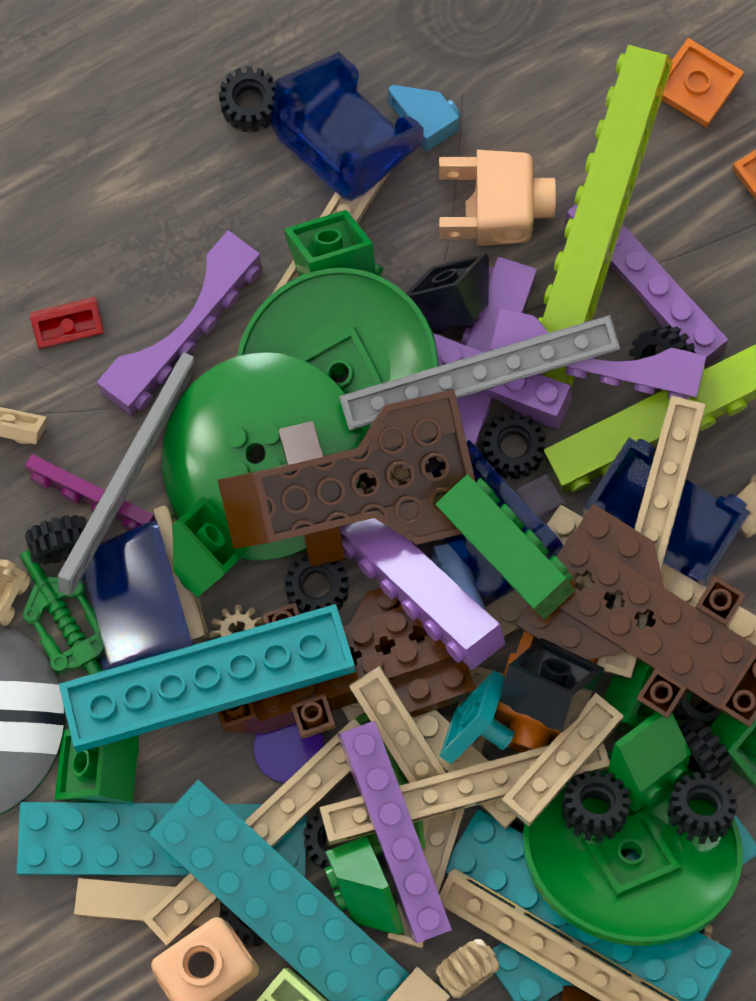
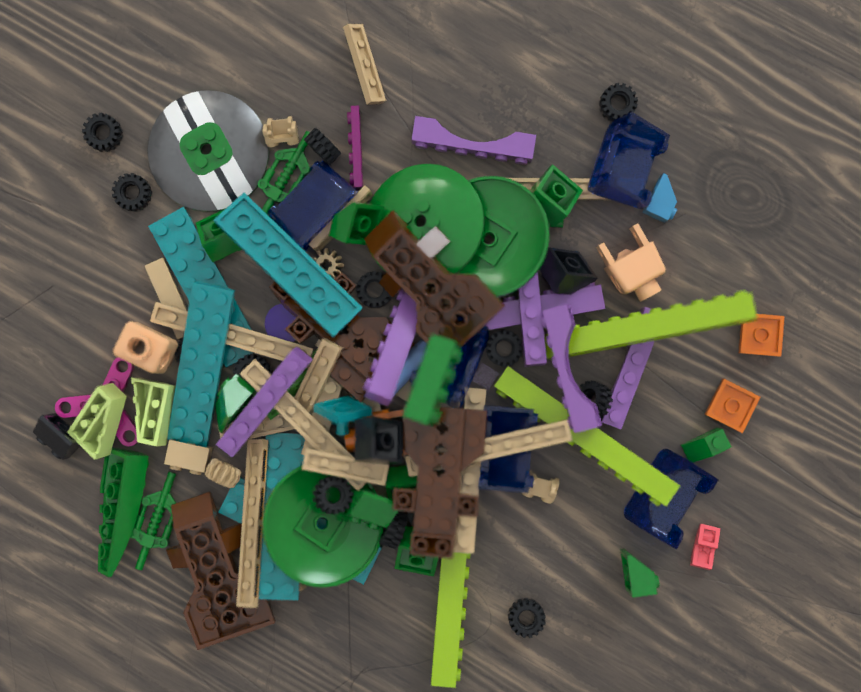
camera: 60 degrees right, 15 degrees up
(66, 322) = (442, 80): red slope -> none
(125, 475) = (373, 161): light grey tile -> none
(487, 369) = (526, 315): light grey tile -> none
(708, 791) = (350, 547): black tyre -> none

